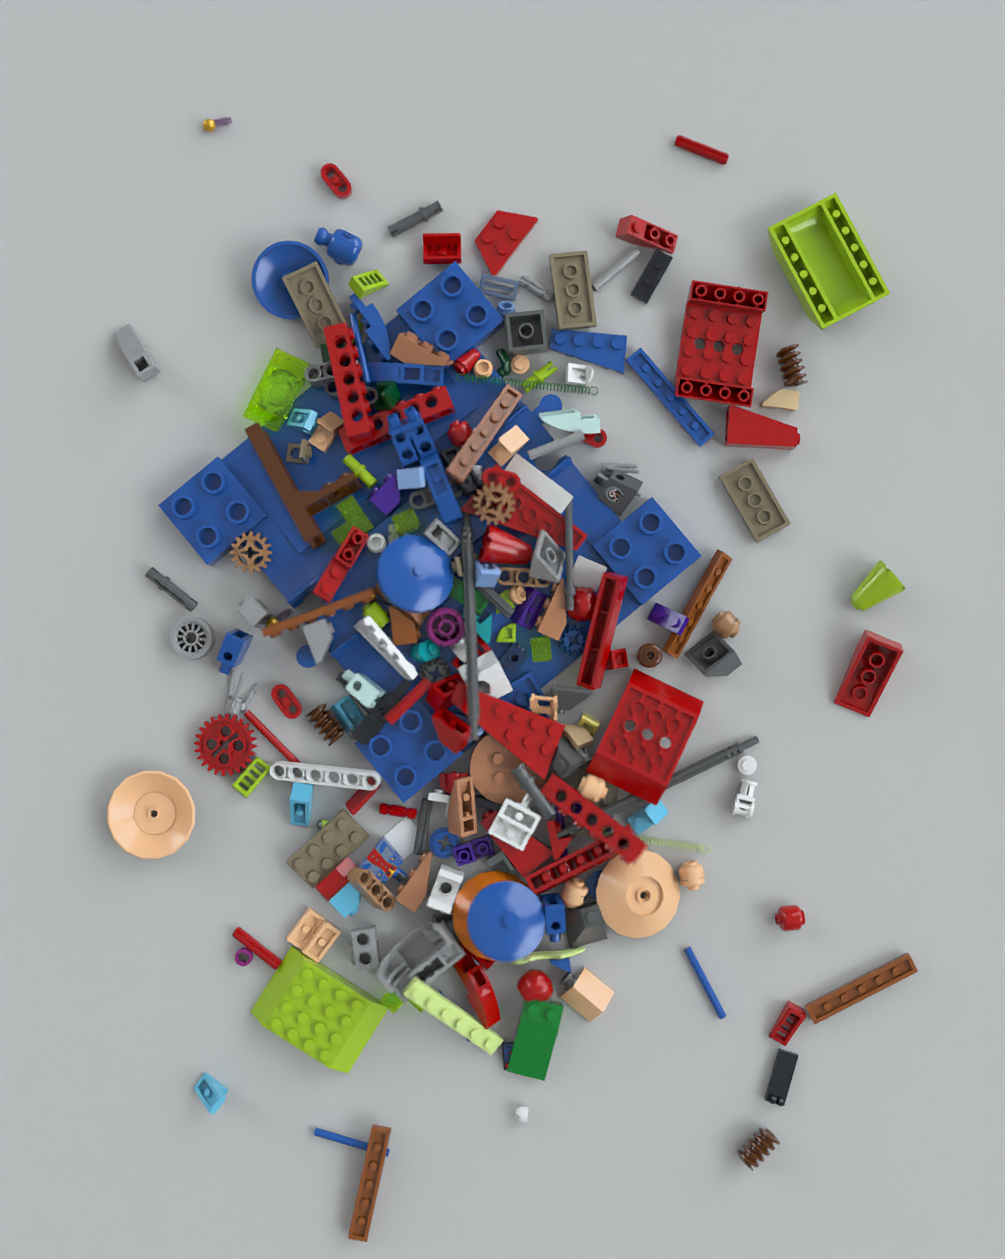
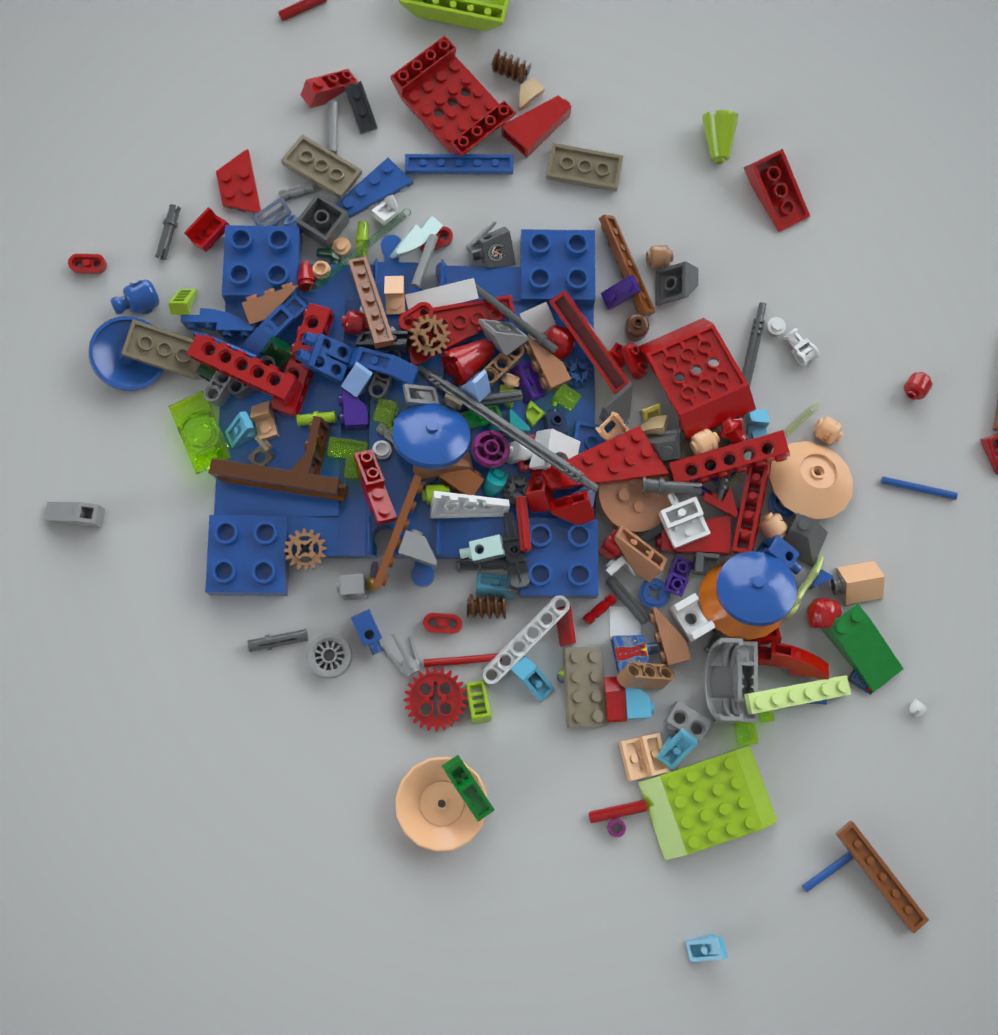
camera: 60 degrees left, 10 degrees down
(175, 825) = (468, 788): none -> green slope
(337, 955) = (676, 748): none -> medium azure slope
(619, 676) = (634, 361): none -> red plate
(621, 802) = (733, 430): none -> red rock

